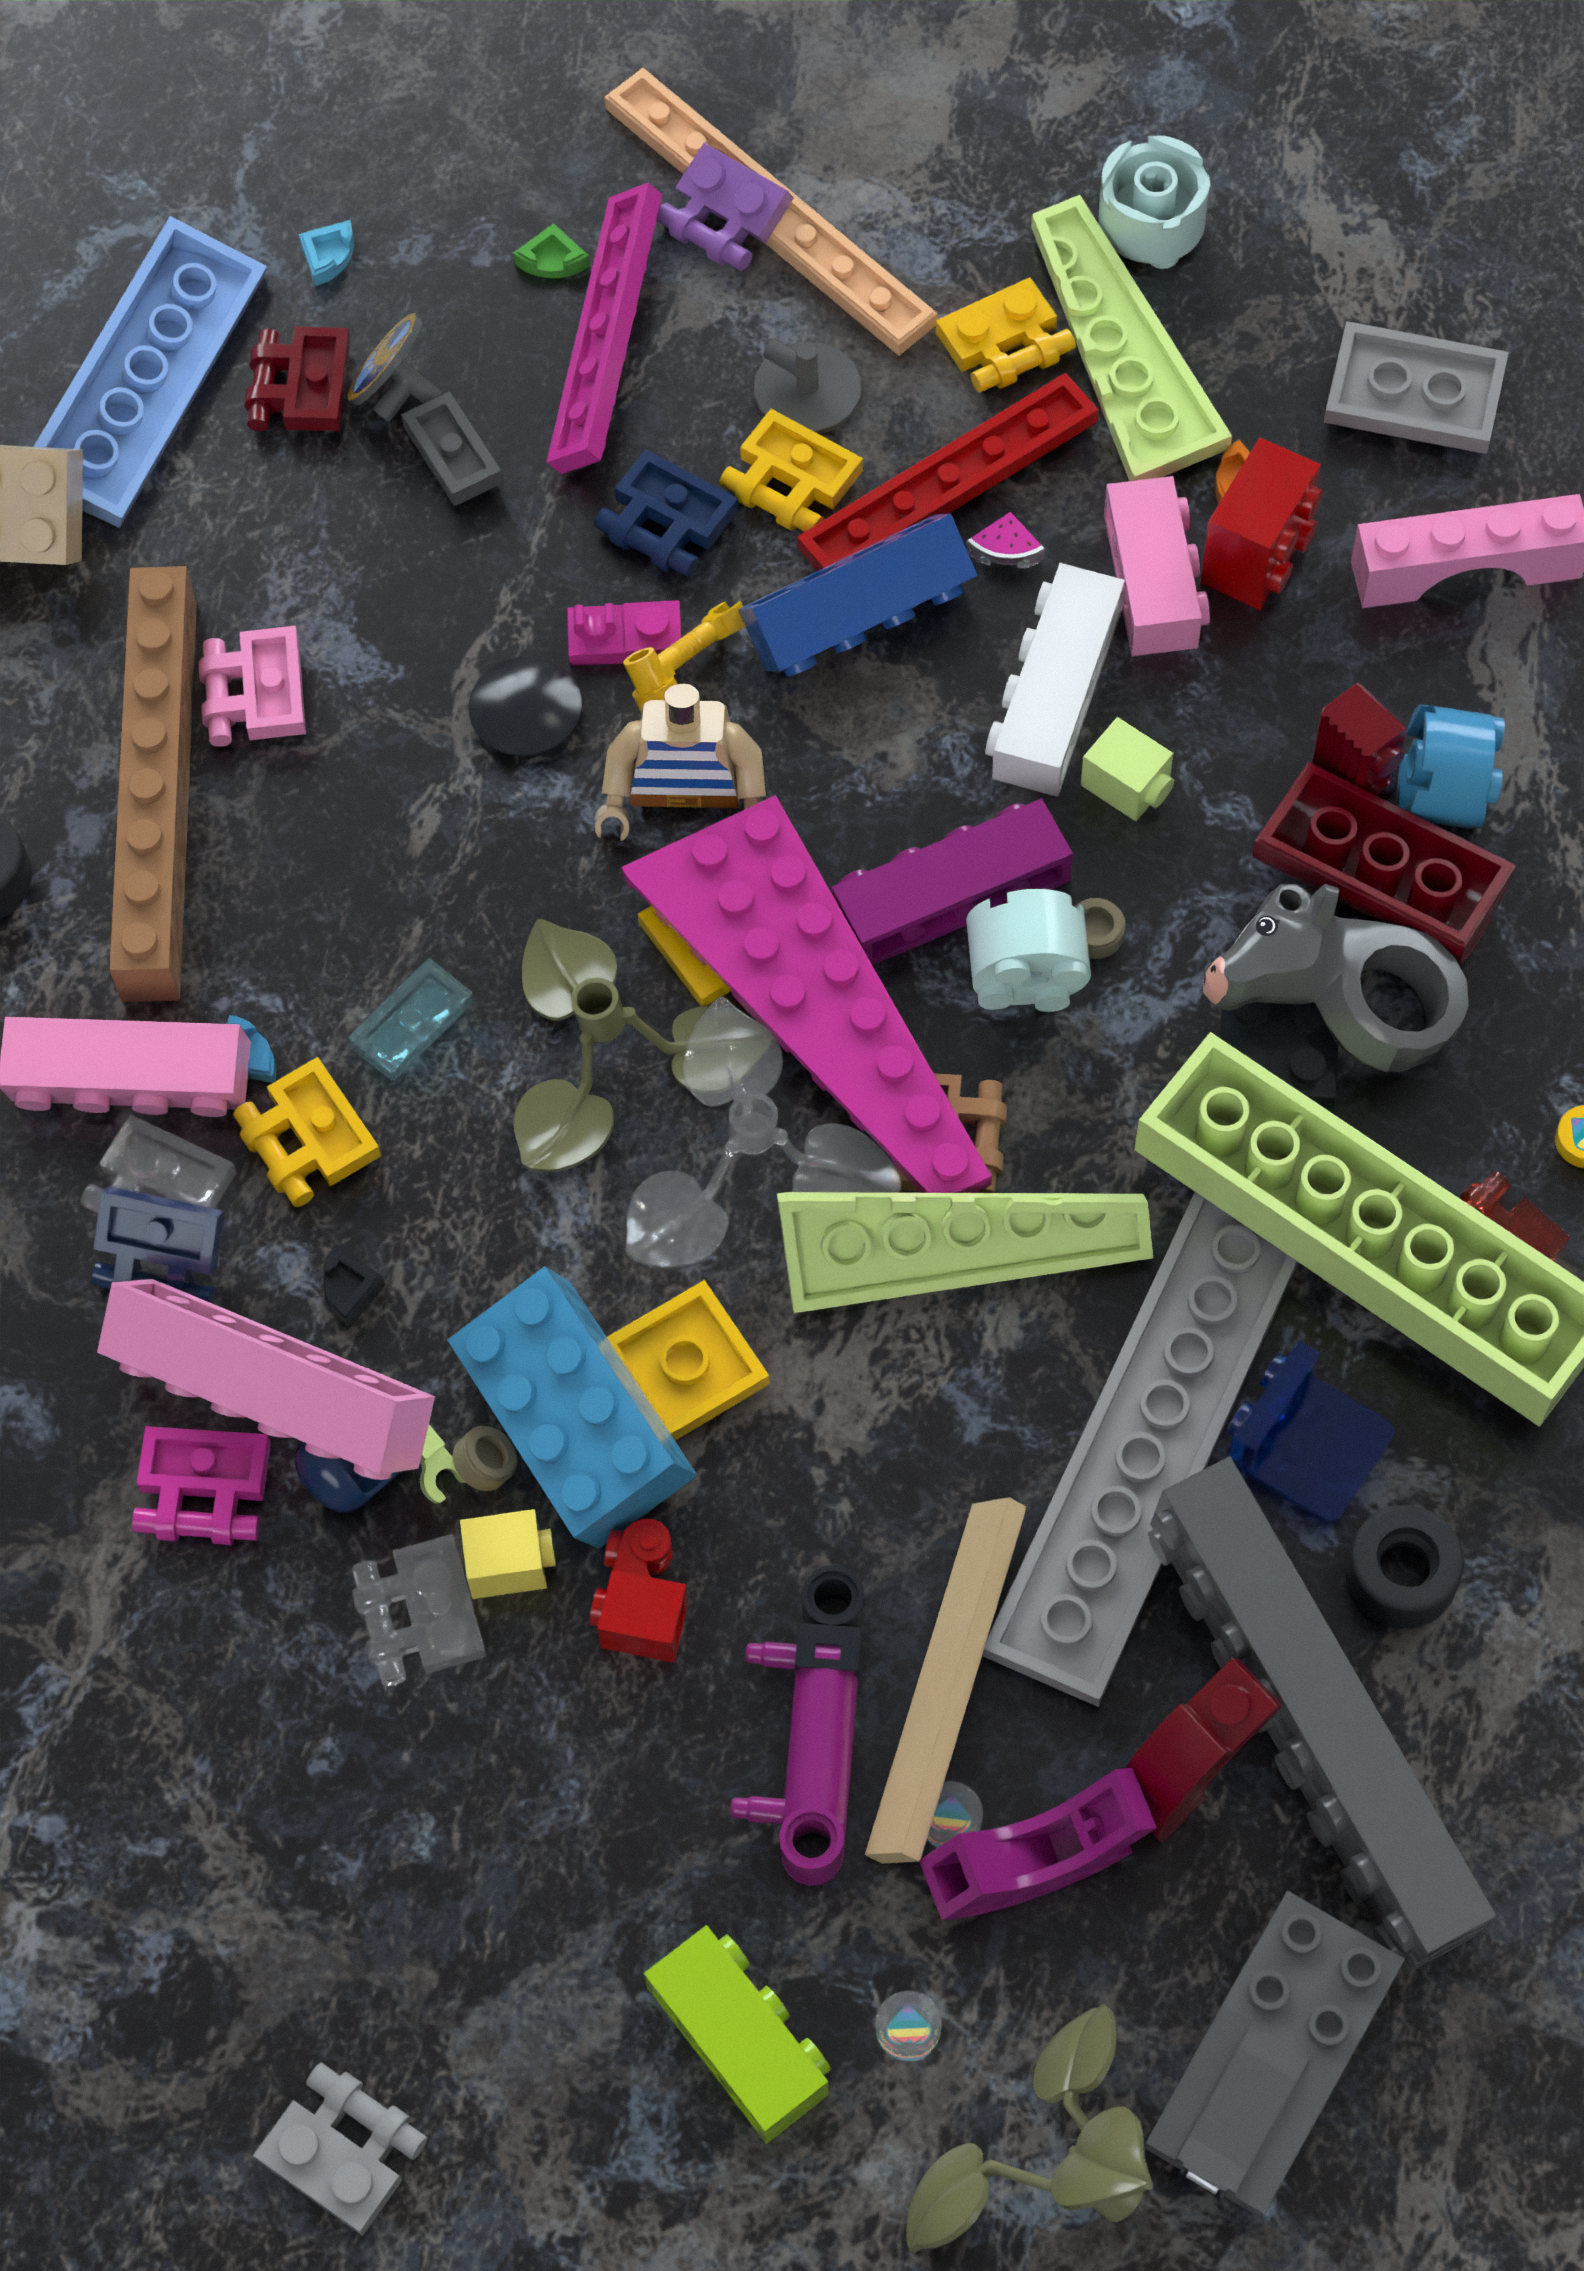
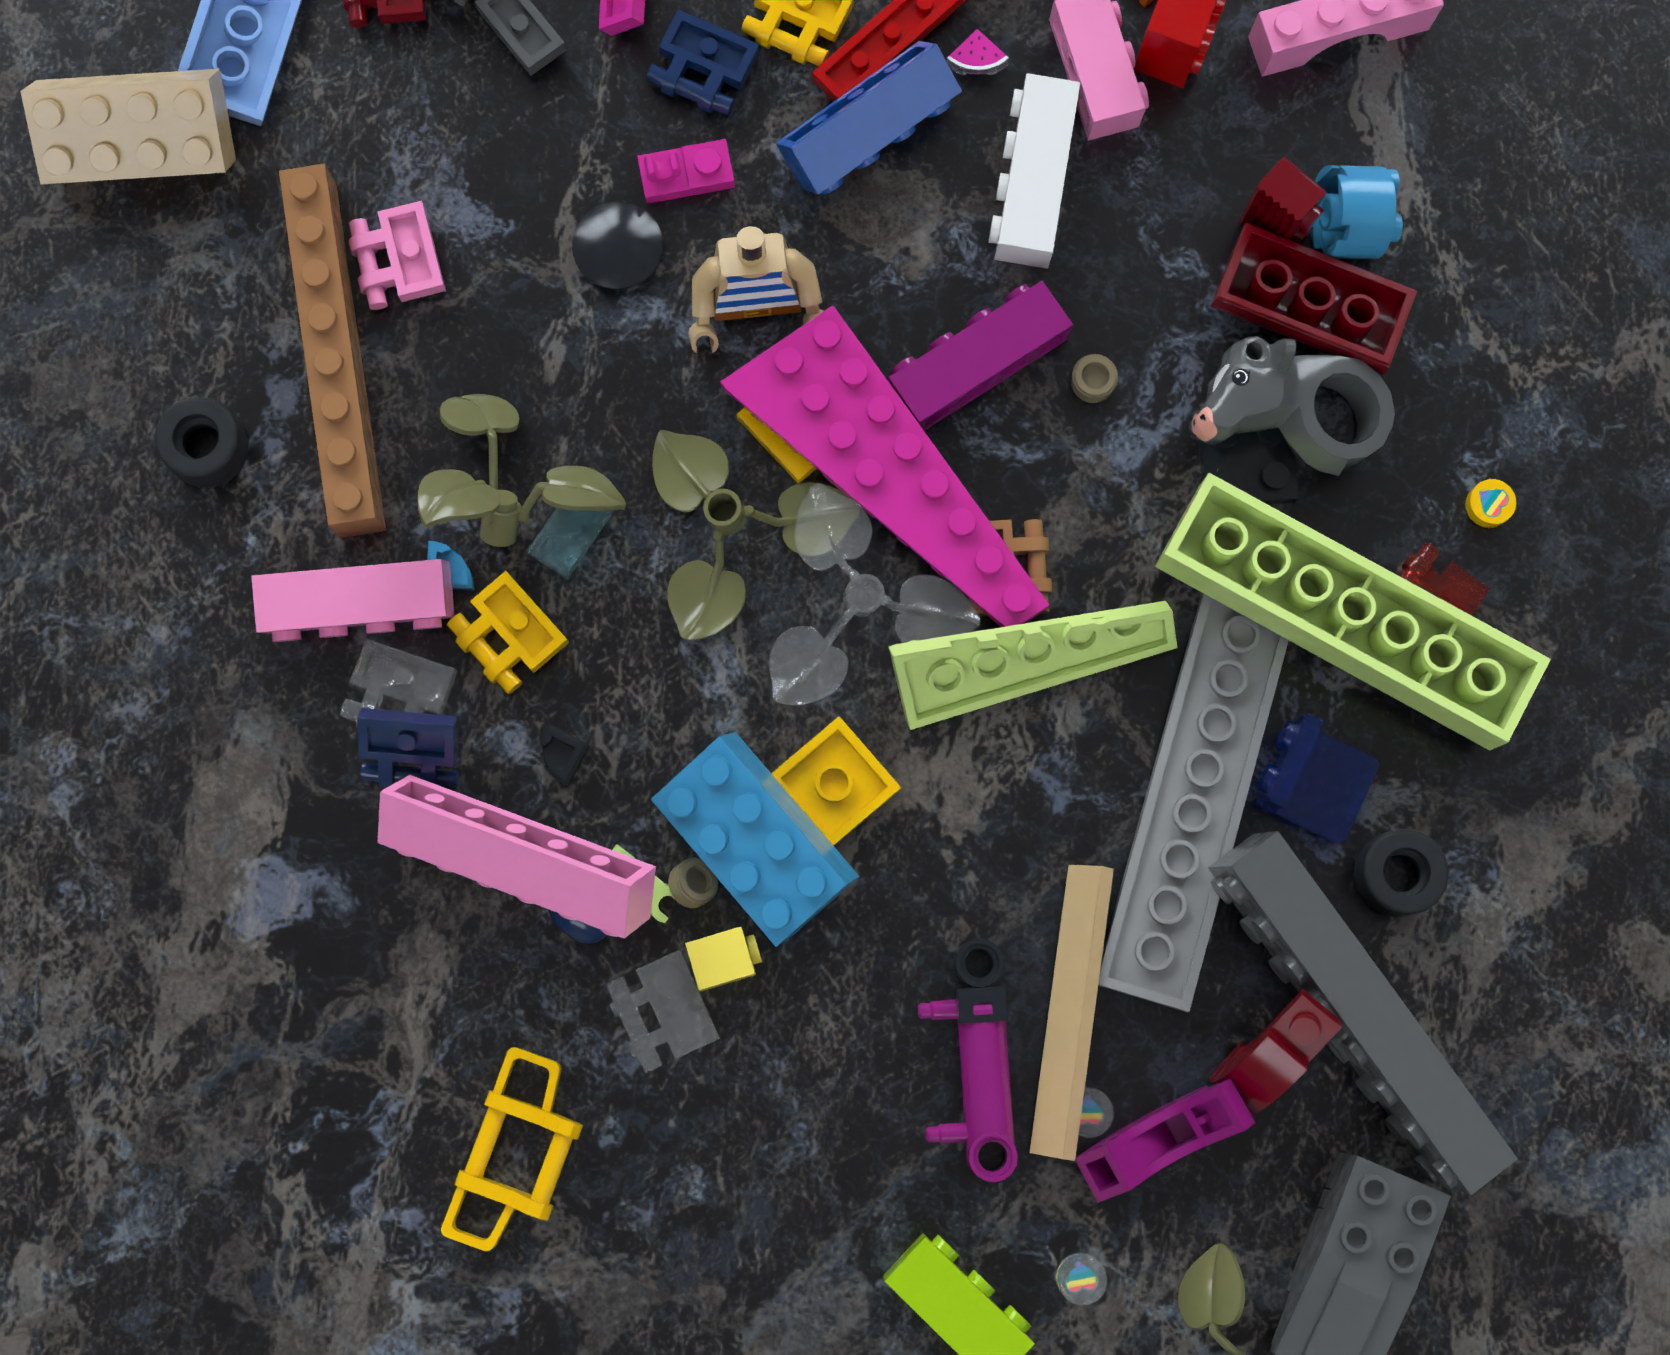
camera: 15 degrees left, 15 degrees up
(190, 1696) = (472, 1177): none -> yellow bar
(201, 1465) = (476, 918): dark pink plate -> none
(325, 984) = (457, 496): none -> olive plant
(635, 1610) = (829, 988): red brick -> none
(654, 673) = (716, 206): yellow brick -> none
(1028, 950) = (1050, 411): light aqua brick -> none
(1128, 770) = (1103, 243): yellowish green brick -> none

